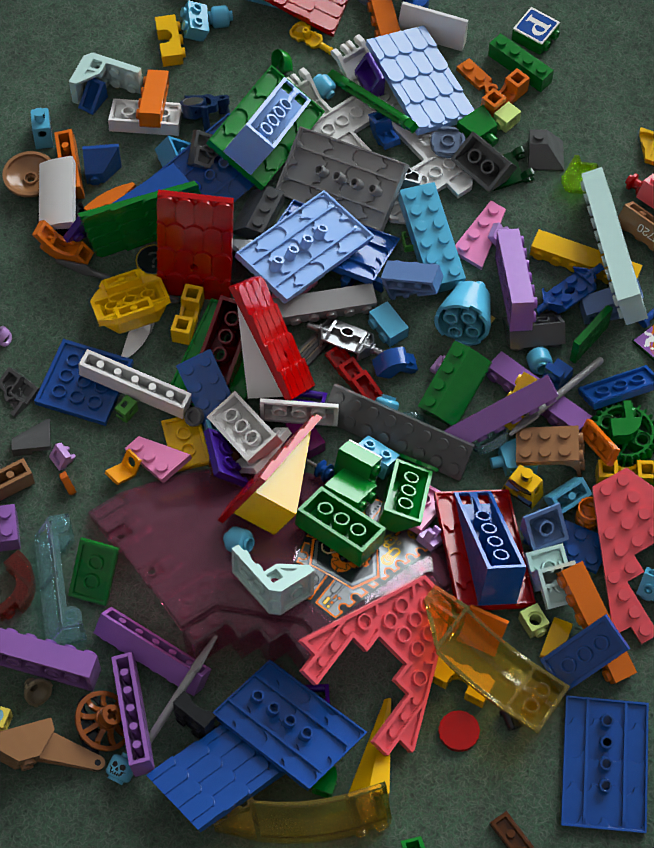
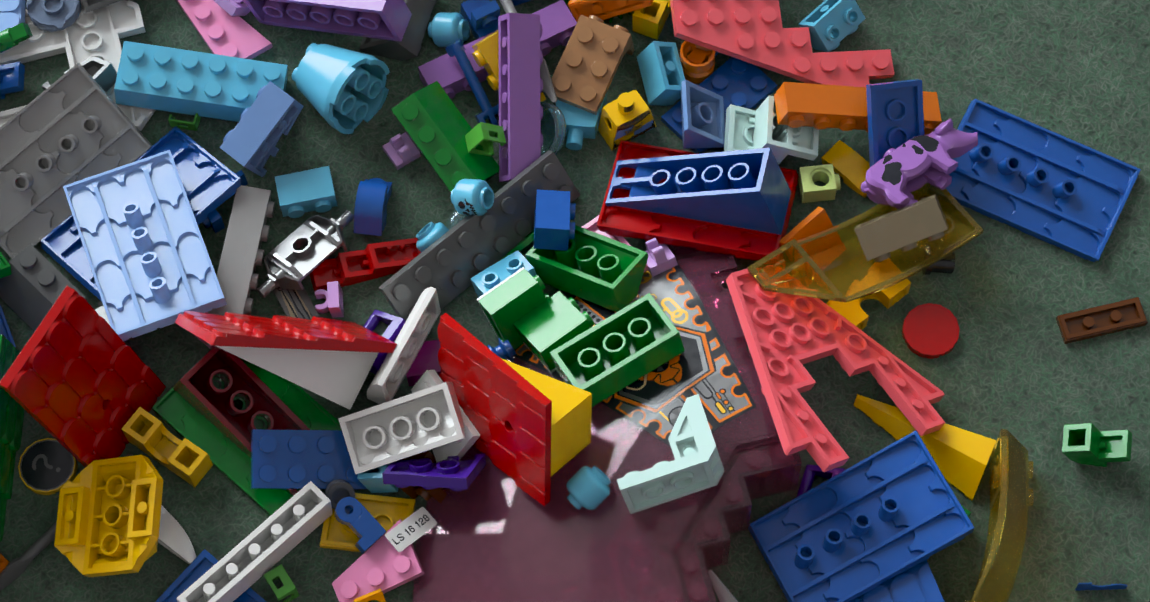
camera: 65 degrees left, 5 degrees up
(179, 433) = (360, 521): none -> blue leg
(186, 463) = (411, 529): none -> white sticker
(322, 367) = (333, 301): none -> lavender tile
(418, 411) = (472, 197): none -> medium azure head
(424, 463) = (553, 219): none -> blue brick
(468, 405) = (484, 135): none -> bright green piece
(511, 675) = (902, 229): none -> dark tan brick
(519, 365) = (458, 50): none -> blue hinge
(567, 670) = (916, 163): none -> medium lavender animal

